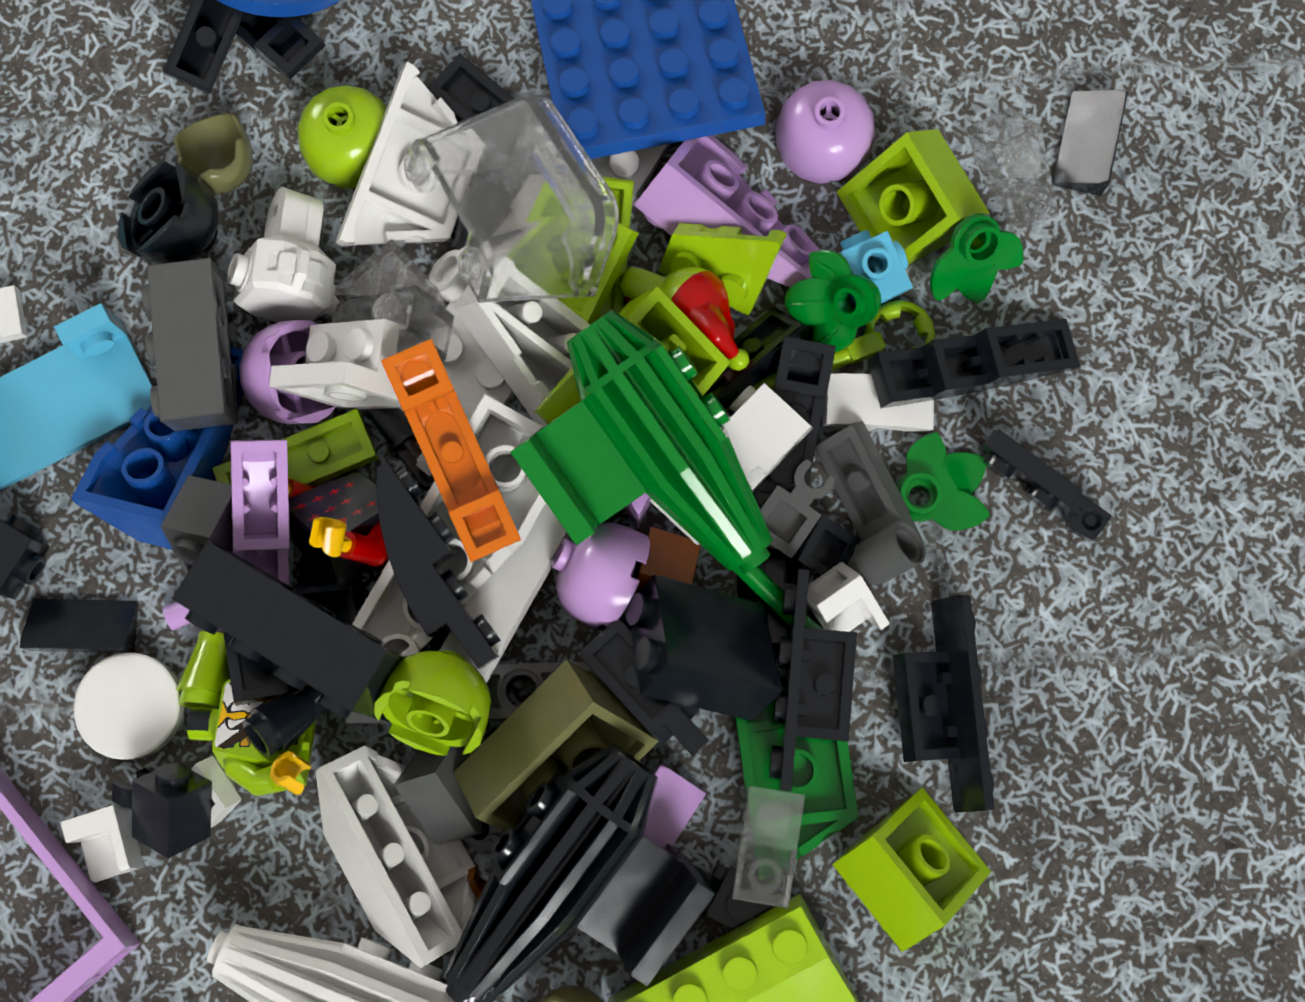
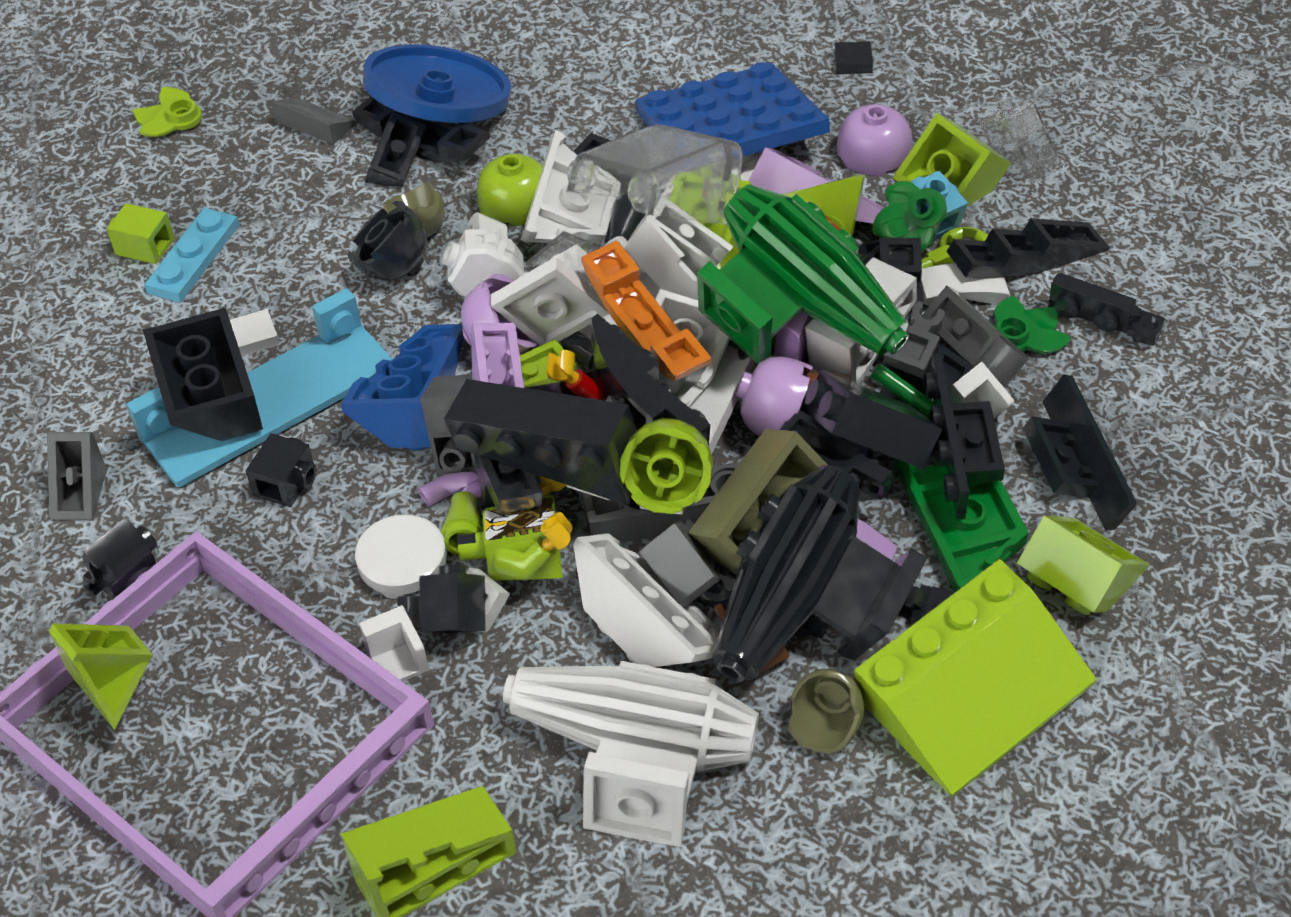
camera: 10 degrees left, 30 degrees down
(81, 626) = (348, 514): black slope -> none
(191, 344) = (421, 301): dark grey wedge -> none
(283, 720) = (536, 505): black cone -> none
(767, 846) = (959, 531): clear slope -> none
(974, 258) = (1009, 190): green plate -> none
(1090, 140) = (1072, 122): slope -> none

